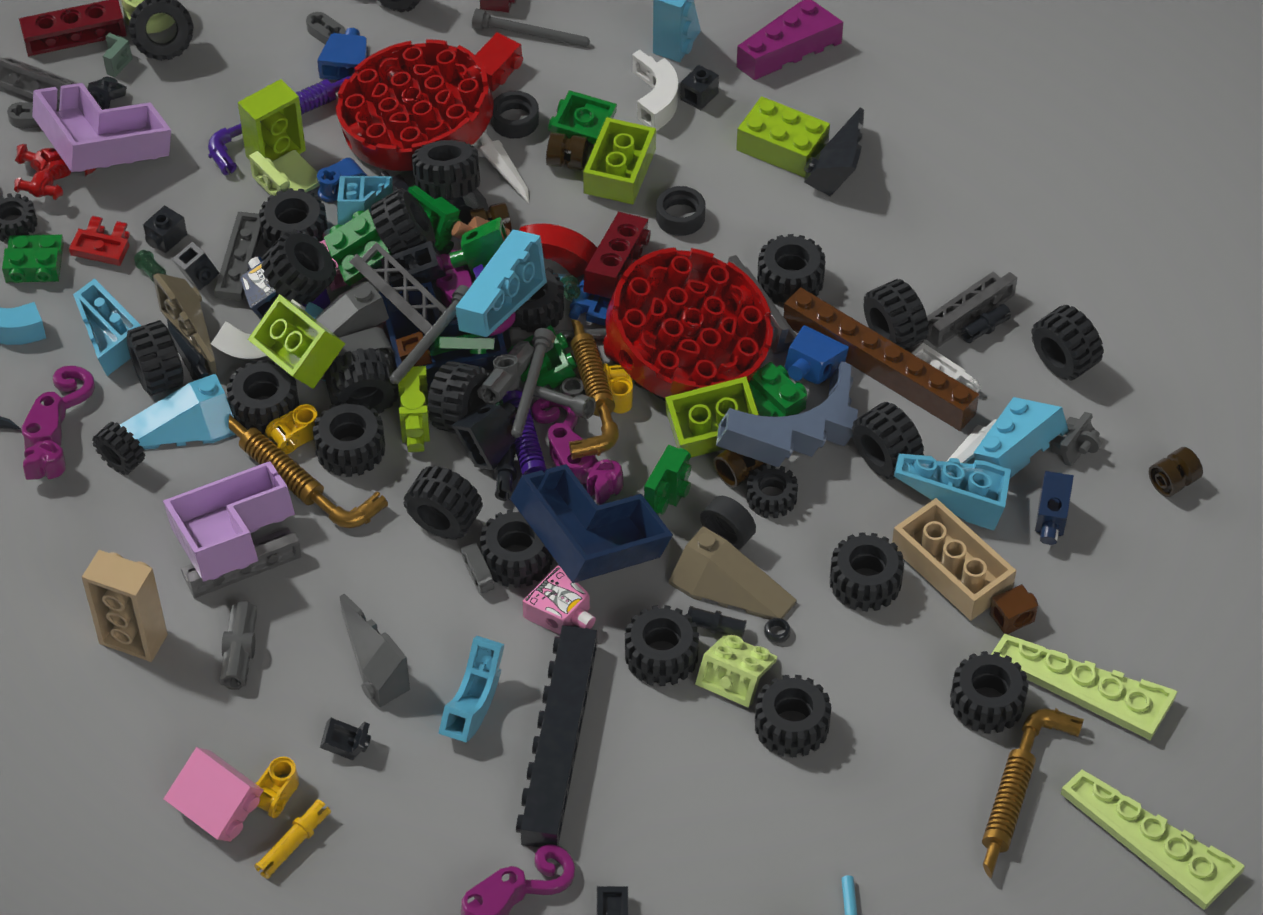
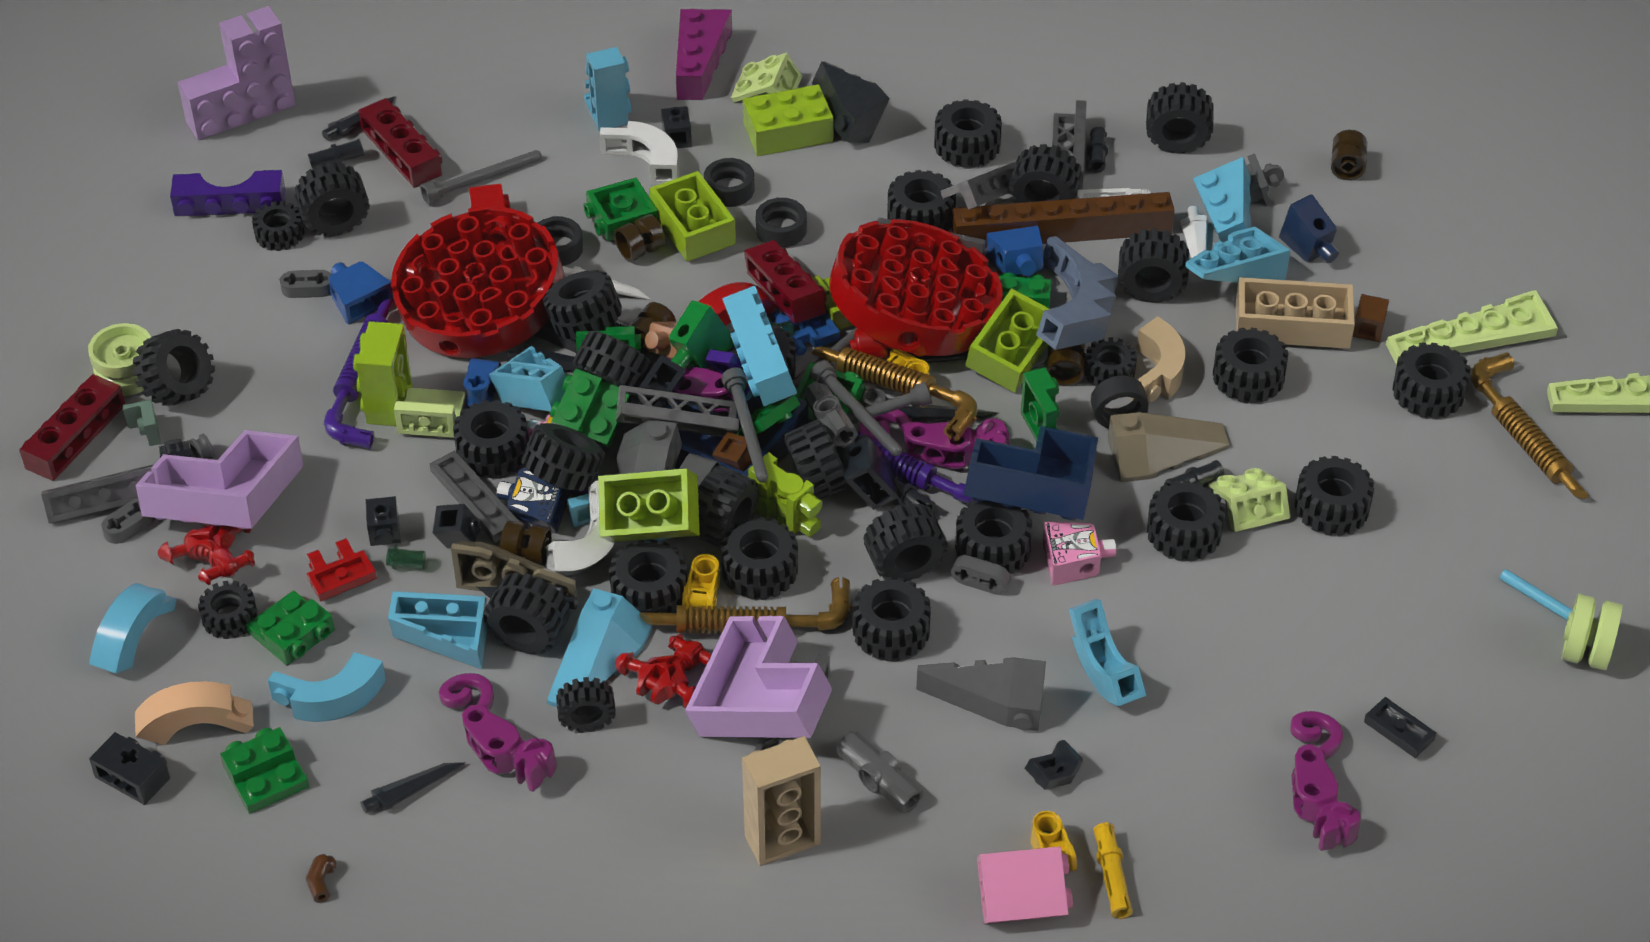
camera: 45 degrees left, 5 degrees down
(125, 96) = (202, 447): none -> dark grey bush
(192, 468) = (666, 673): none -> red piece
(222, 306) = (516, 538): none -> dark brown wheel
(378, 567) = (888, 637): none -> black tyre
(559, 737) = (1200, 640): black brick -> none
(594, 425) = (937, 413): none -> black bar
(684, 140) = (731, 168): none -> black tyre
(777, 622) = (1237, 446): black piece -> none
(807, 528) = (1167, 351): none -> tan arch
(813, 96) = (769, 76): none -> yellowish green bracket
(834, 286) = (983, 187): none -> flat silver fence
(902, 254) = (967, 133): none -> black tyre

